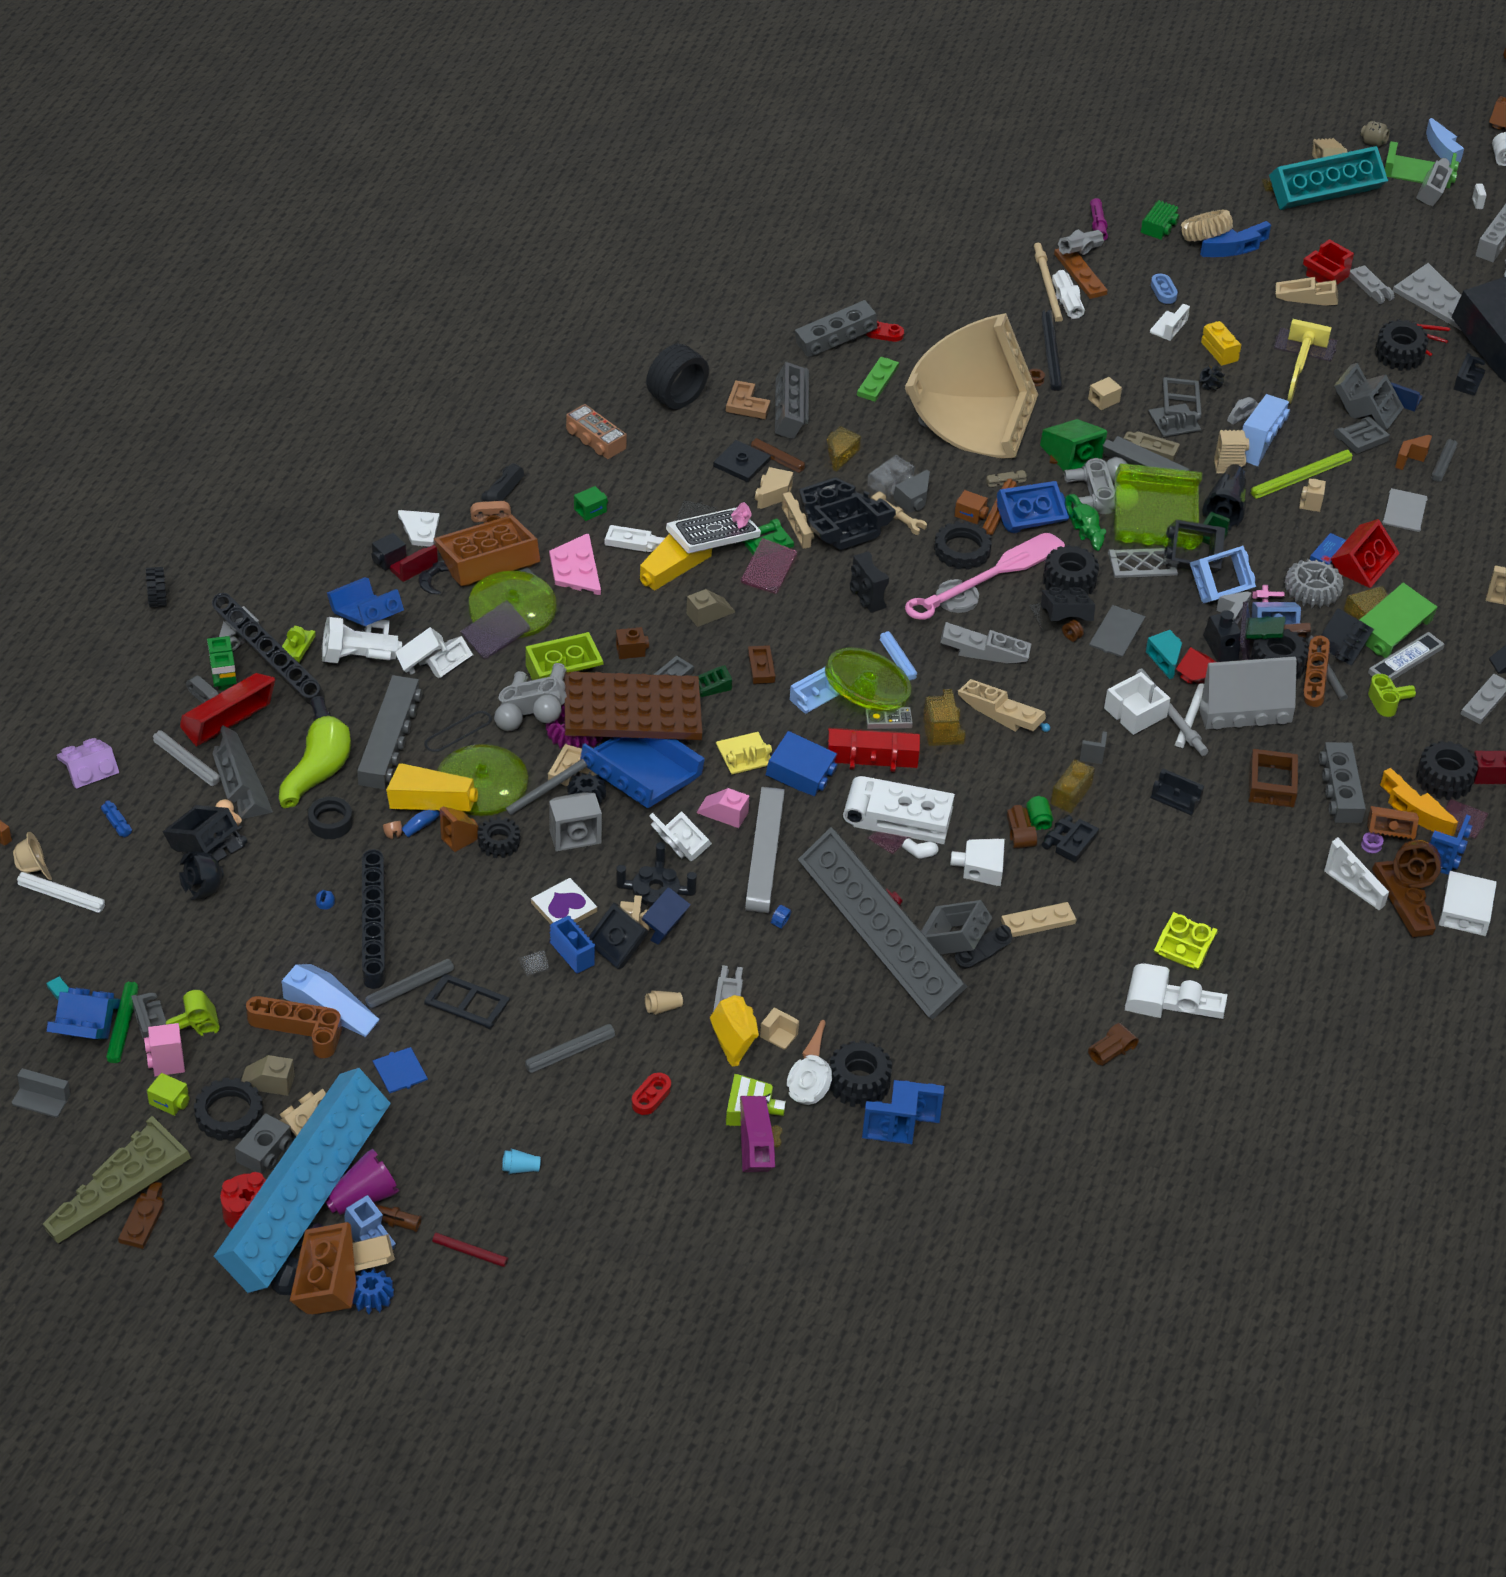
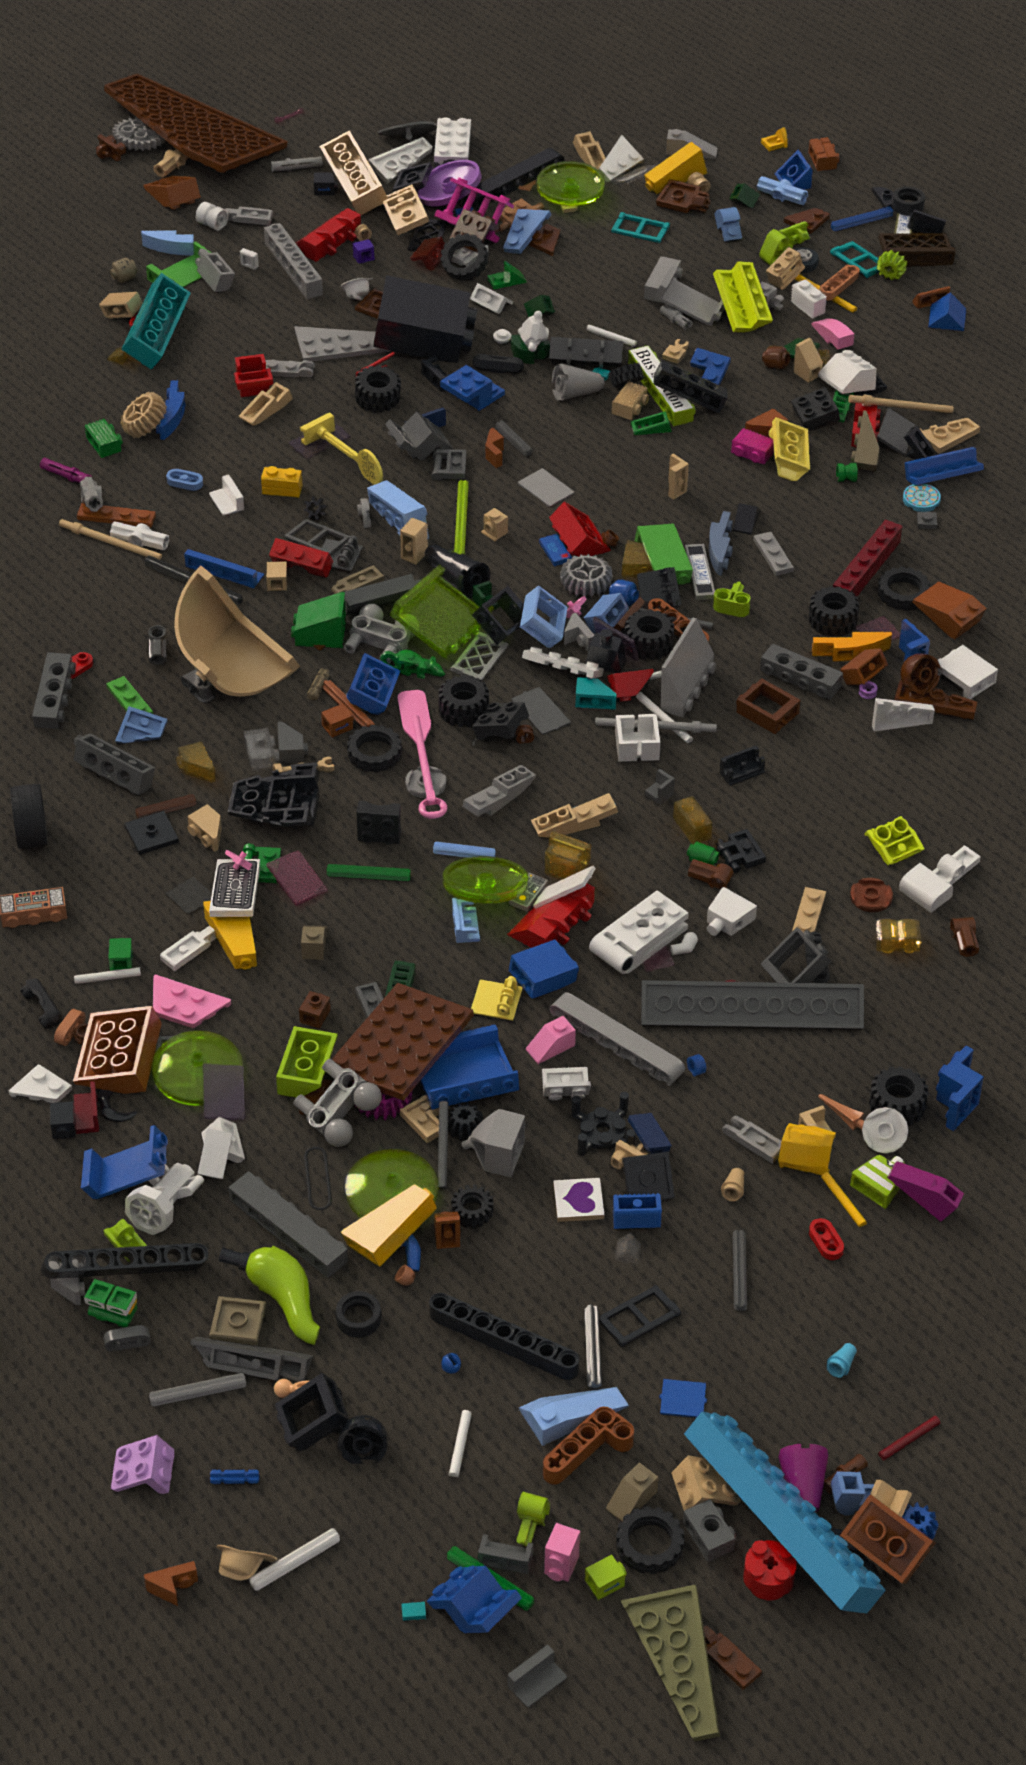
camera: 55 degrees left, 0 degrees up
(228, 708) = (176, 1322): red piece -> none
(246, 943) = (460, 1443): none -> white bar
(270, 749) = (238, 1320): none -> dark tan plate
(566, 509) = (109, 975): none -> white bar
(711, 1089) = (843, 1199): none -> yellow bar
(743, 403) = (82, 796): medium nougat plate -> none
(761, 664) = (406, 939): reddish brown plate -> none
(797, 520) = (258, 832): tan plate -> none
(817, 608) = (368, 872): none -> green axle
(849, 397) = (140, 726): none -> medium blue wing
(901, 730) = (564, 887): none -> white piece
(1065, 994) = (898, 935): none -> clear yellow brick
(1083, 358) = (223, 569): none -> blue panel
(1111, 959) = (865, 898): none -> copper tile
(1138, 396) = (311, 559): none -> red arch
(1185, 620) = (536, 655): none -> white wing
(1266, 627) = (627, 620): dark green piece -> none
(1318, 616) = (627, 589): none -> blue head
(1381, 577) = (610, 538): none -> reddish brown plate
(1451, 652) = (720, 543): none -> sand blue slope
(1469, 395) = (472, 387): none -> blue bracket

